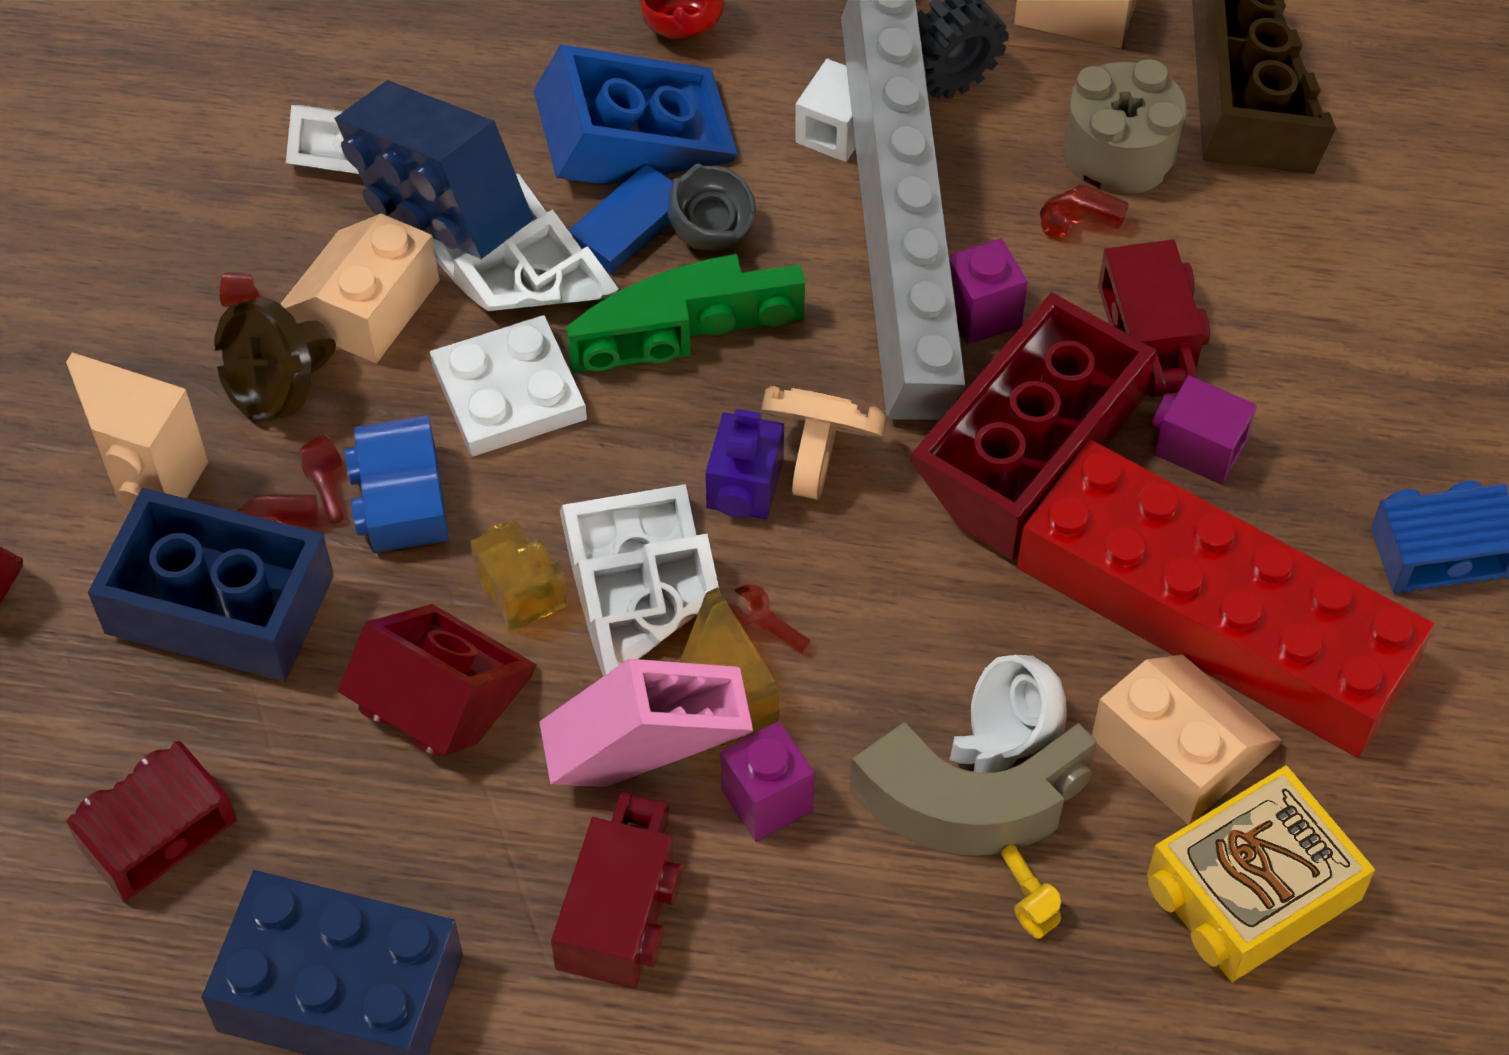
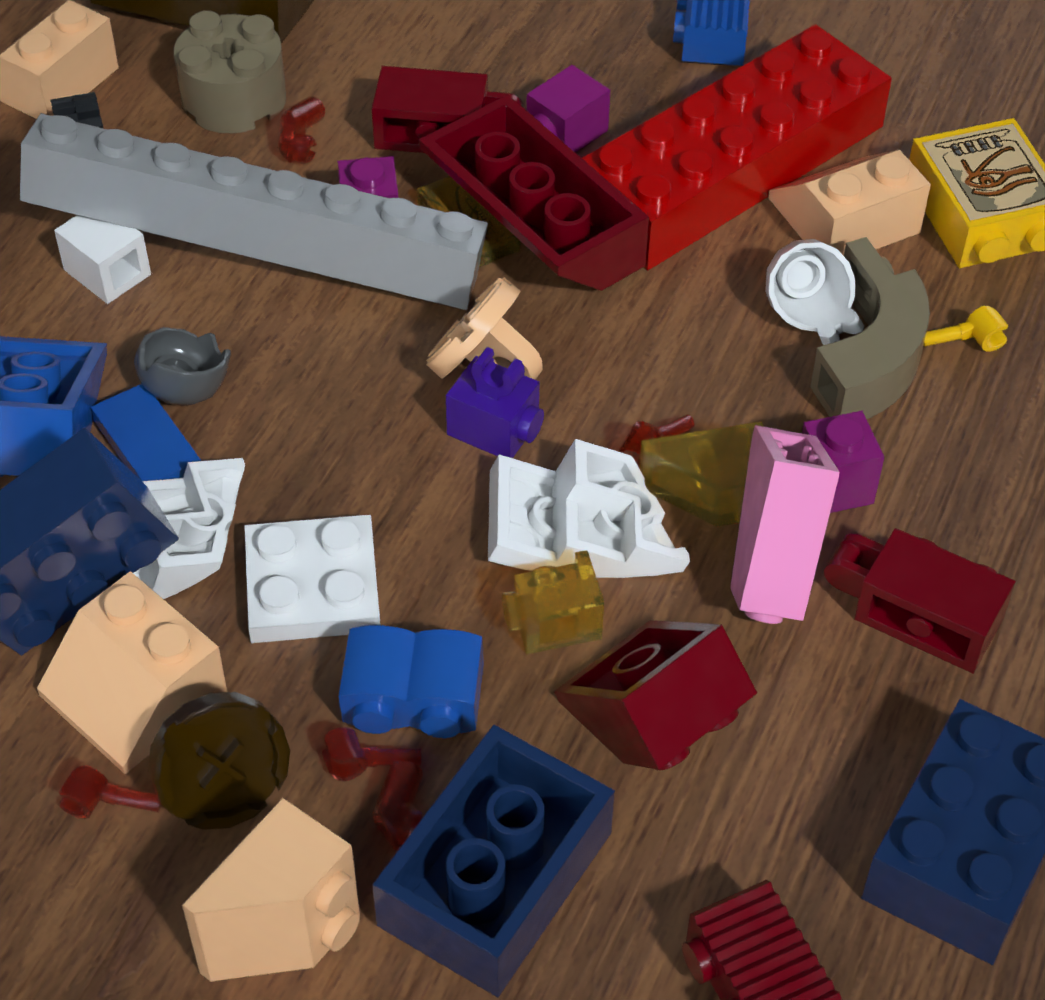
camera: 75 degrees left, 5 degrees down
(663, 311) = (296, 414): green slope -> none

